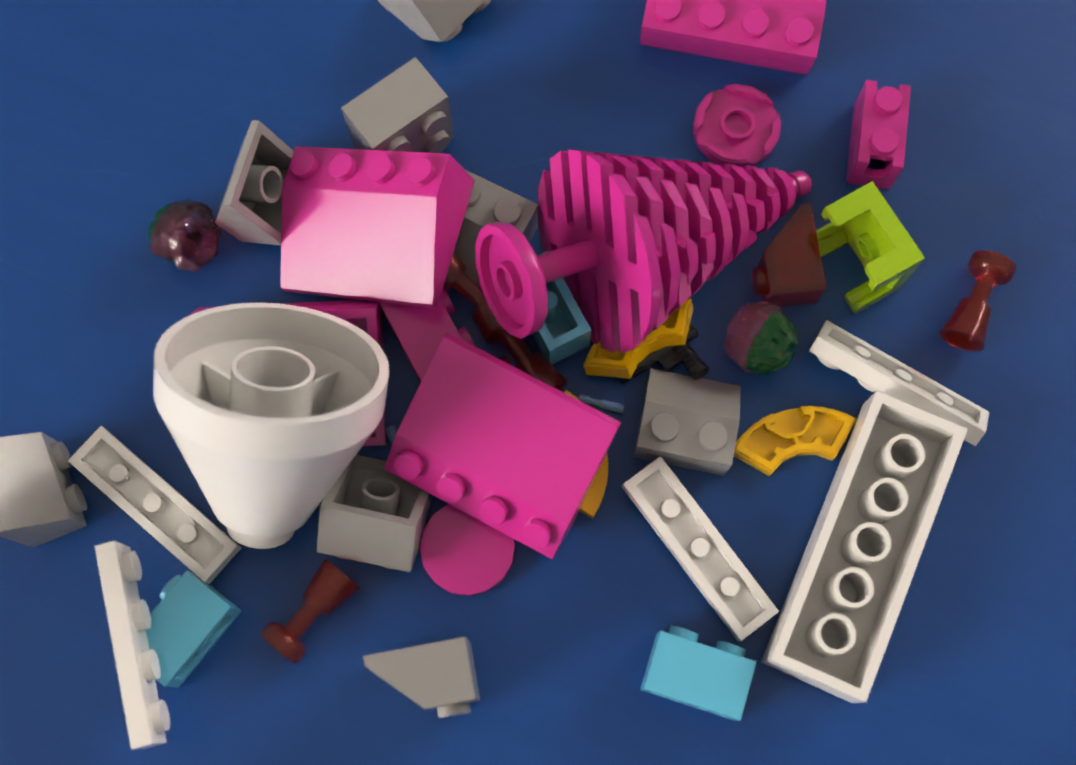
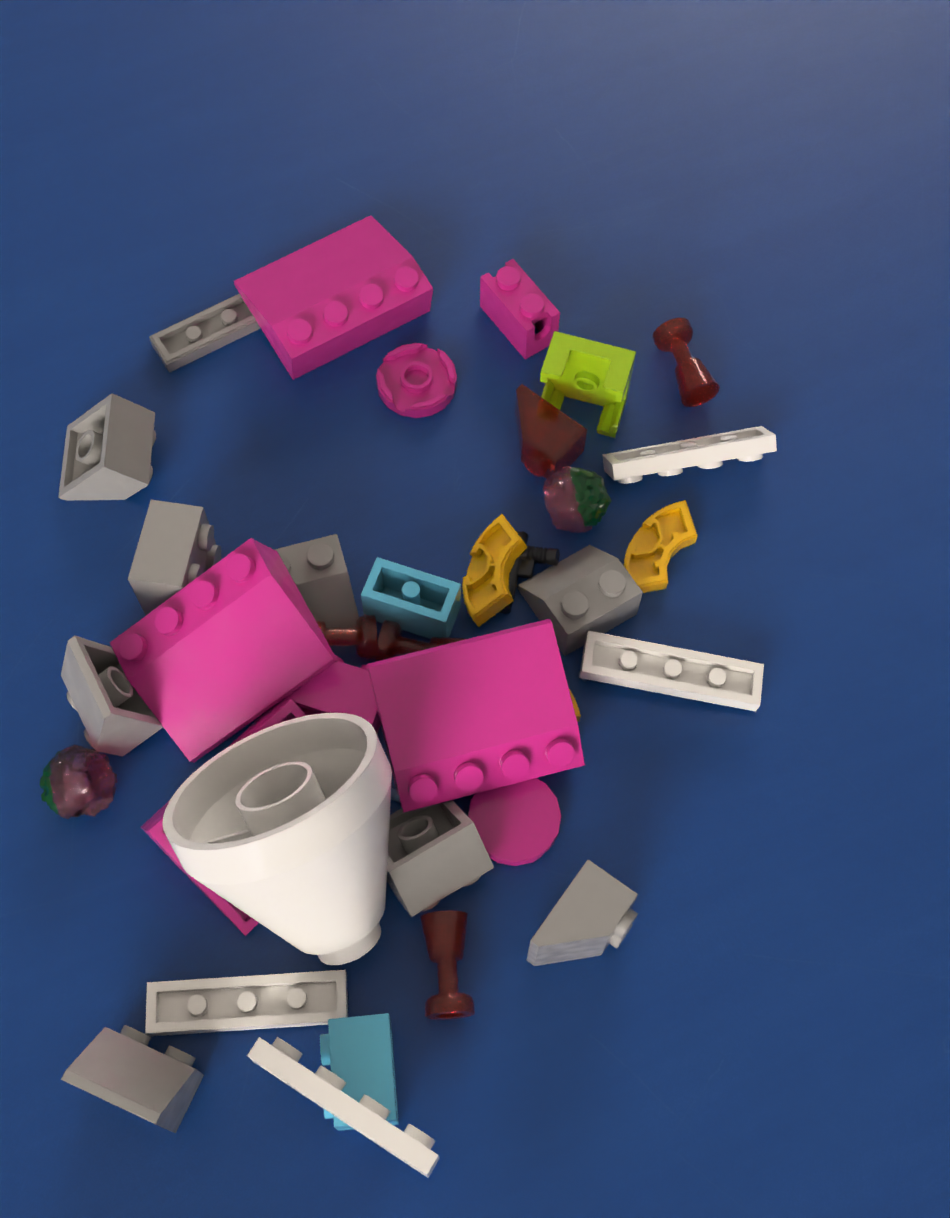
camera: 45 degrees left, 10 degrees down
(628, 239) = (423, 505): dark pink plant -> none
(699, 674) = (754, 753): medium azure brick -> none
(864, 548) = (777, 575): white brick -> none

